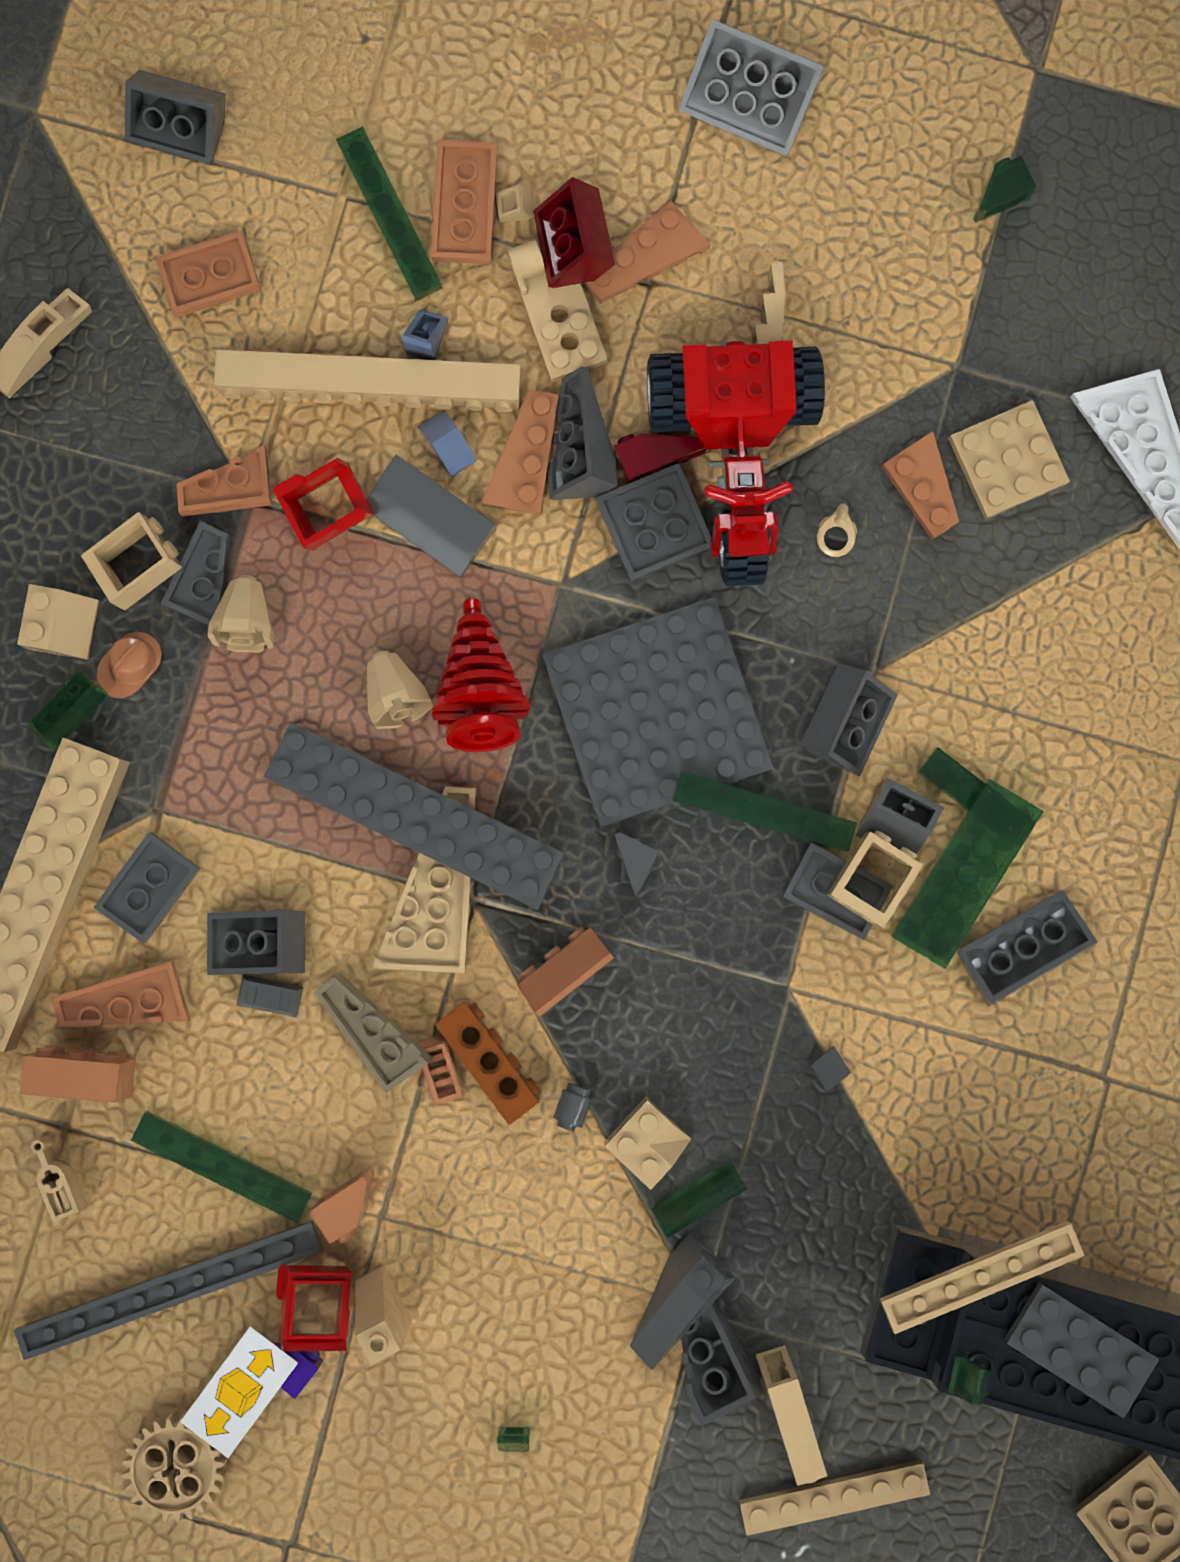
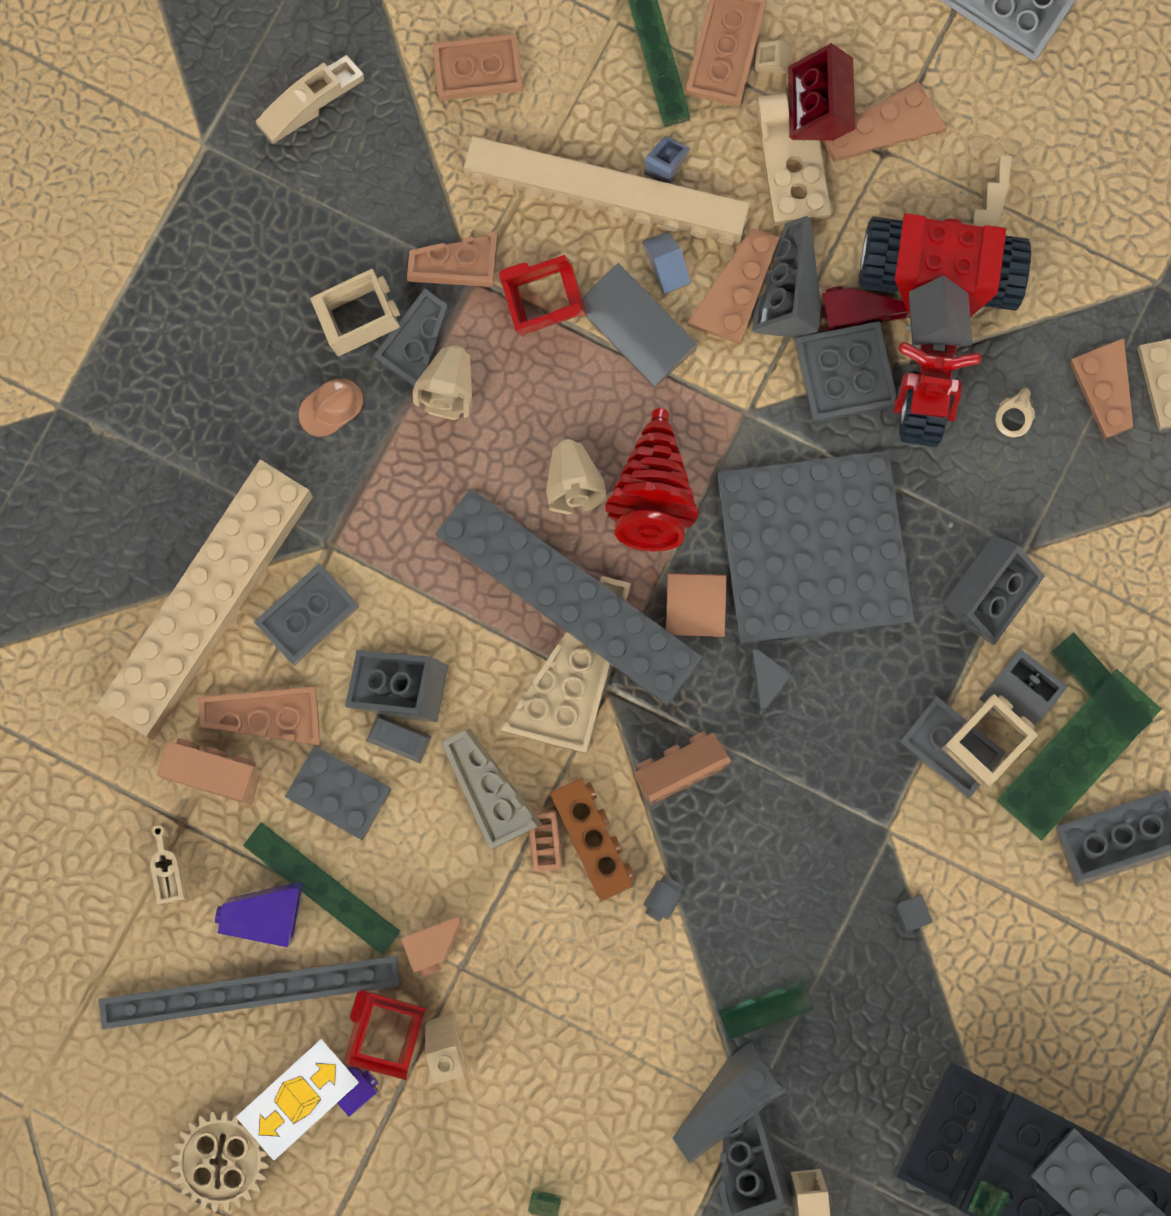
camera: 20 degrees right, 5 degrees down
(58, 622) = (275, 355): tan slope -> none
(67, 708) = (268, 434): clear green piece -> none
(165, 1209) = (262, 915): none -> dark purple slope
(218, 1065) = (338, 792): none -> dark grey plate
(547, 796) = (696, 604): none -> nougat slope
(647, 1142) = (728, 946): tan slope -> none
(740, 446) = (940, 314): none -> dark grey slope
(764, 811) = (898, 658): clear green plate -> none
(981, 1277) = (1019, 1109): tan plate -> none

